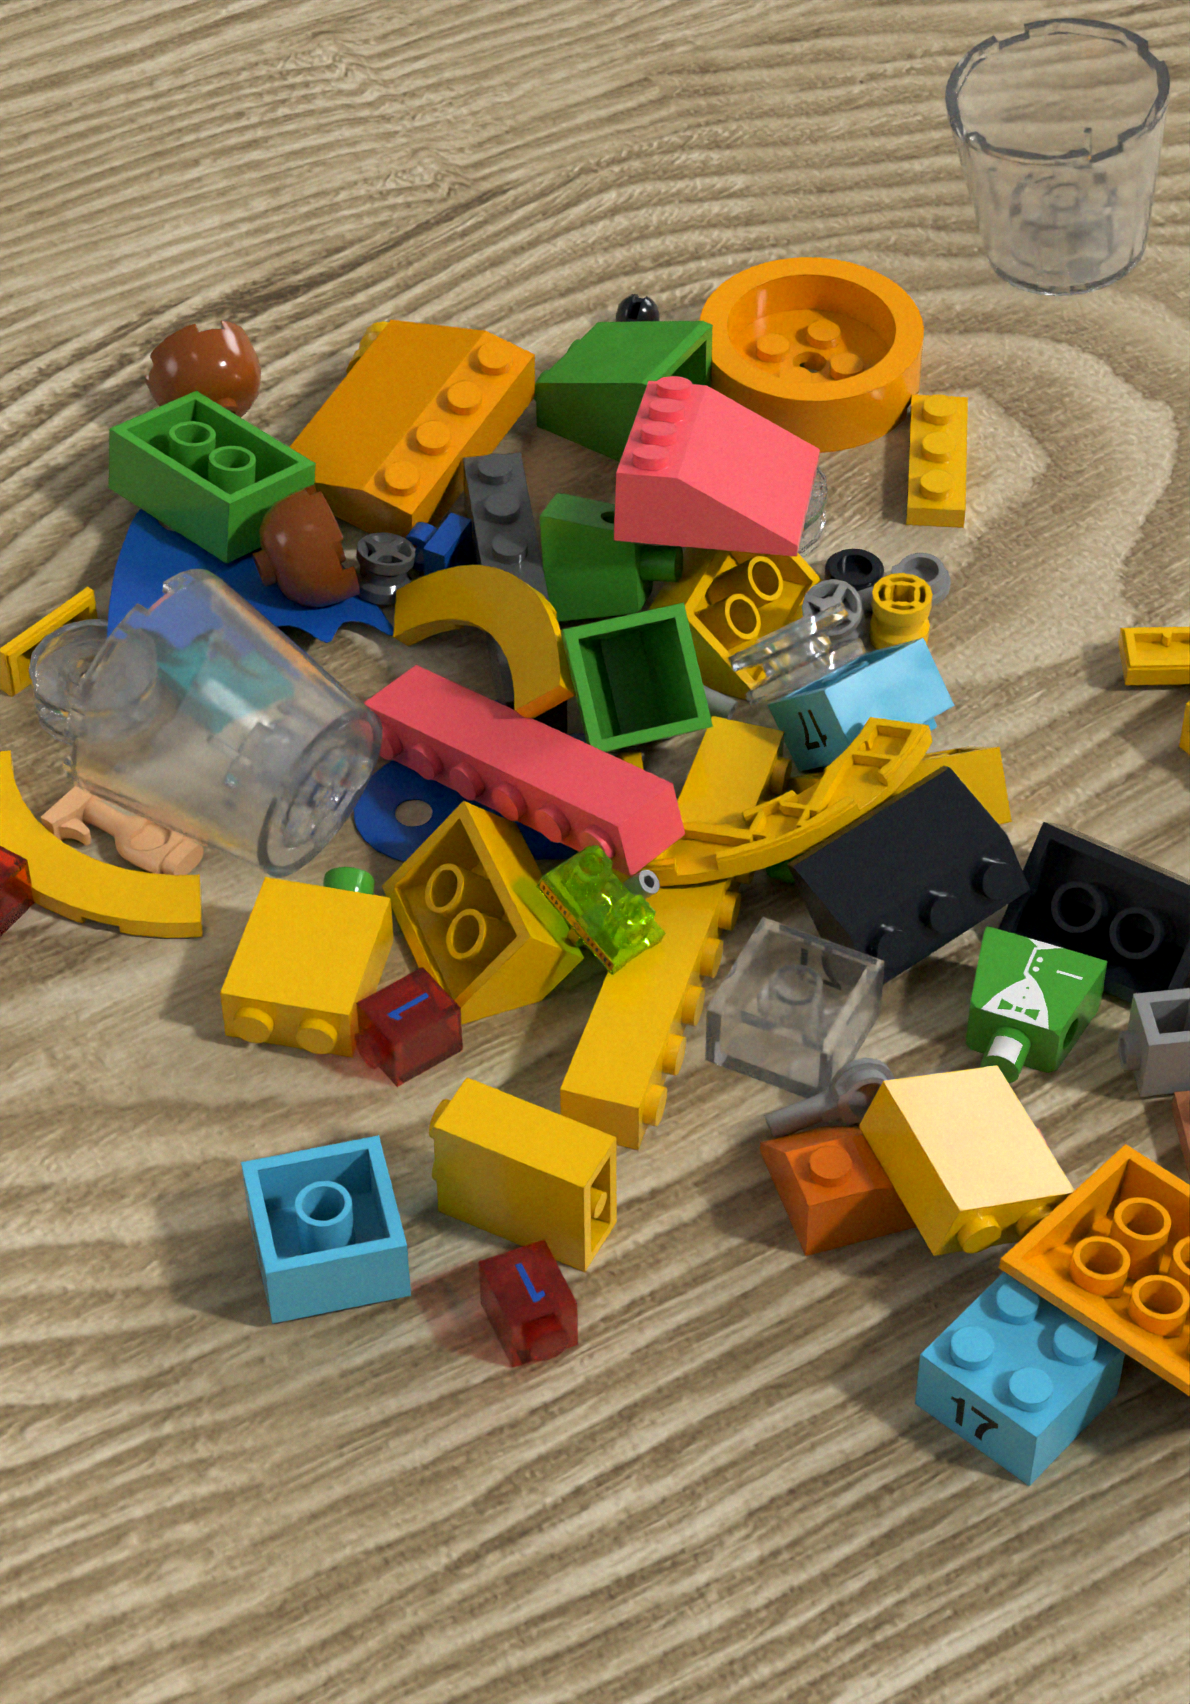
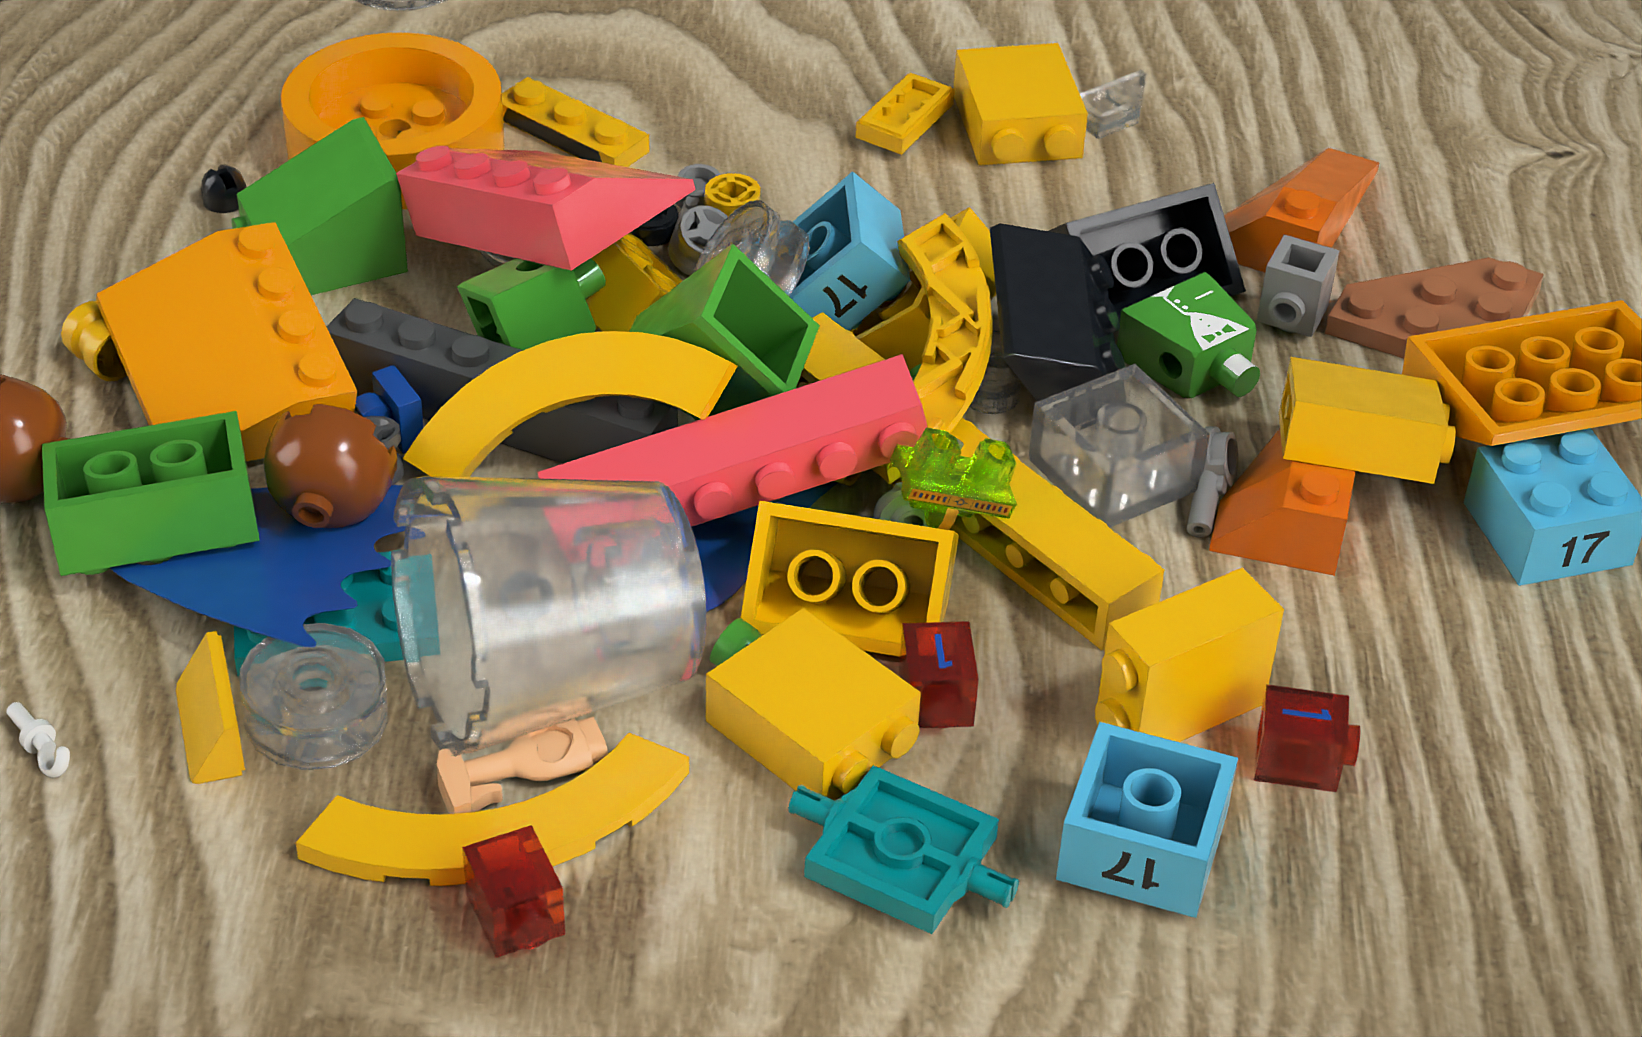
camera: 60 degrees left, 5 degrees down
(198, 1096) = (902, 848): none -> teal plate

